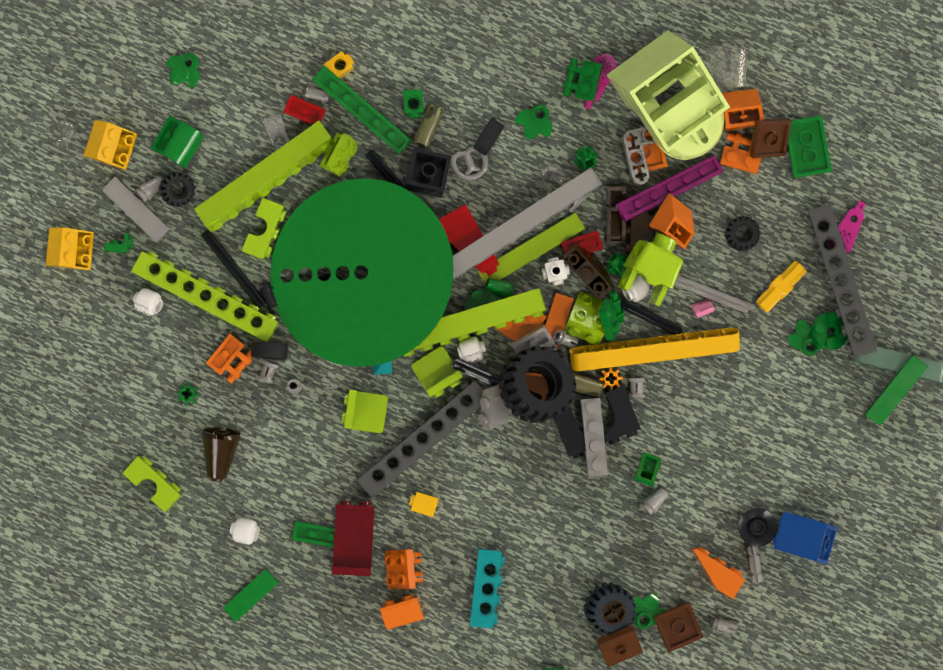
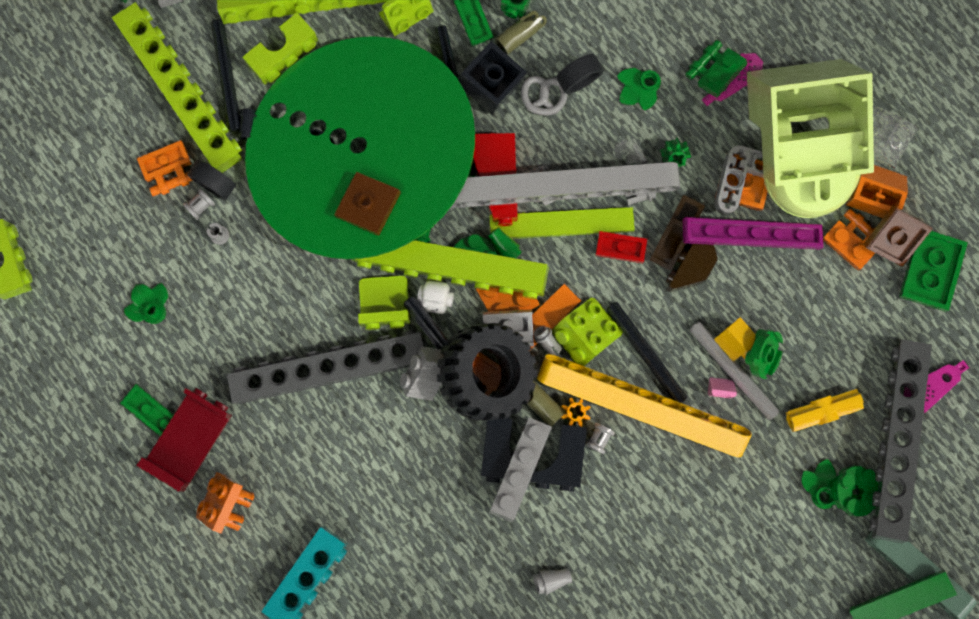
camera: 30 degrees right, 5 degrees down
(147, 302) = (113, 61): white head -> none
(185, 389) = (91, 180): green gear -> none
(219, 451) = (95, 261): dark brown cone -> none
(244, 531) = (73, 365): white head -> none
(250, 595) = (40, 441): green tile -> none
(267, 460) = (145, 301): none -> green plate
(365, 411) = (279, 302): lime bracket -> none
(385, 368) = (328, 266): teal slope -> none
(392, 311) = (367, 203): none -> reddish brown plate
(401, 612) = (193, 553): orange slope -> none
(423, 504) = (288, 442): yellow brick -> none
(555, 279) = (572, 267): white brick -> none
(589, 270) = (614, 277): dark brown slope -> none
(611, 315) = (614, 340): green plate -> none
(616, 264) = (651, 288): green gear -> none
(638, 289) = (657, 325): white head -> none
(647, 469) = (563, 539): green slope -> none
(655, 263) = (695, 306): lime piece -> none
(674, 221) = (738, 273): orange slope -> none
(696, 269) = (736, 339): none -> yellow brick
(720, 269) = (764, 354): none -> green plate
(736, 243) = (820, 317): black tyre -> none

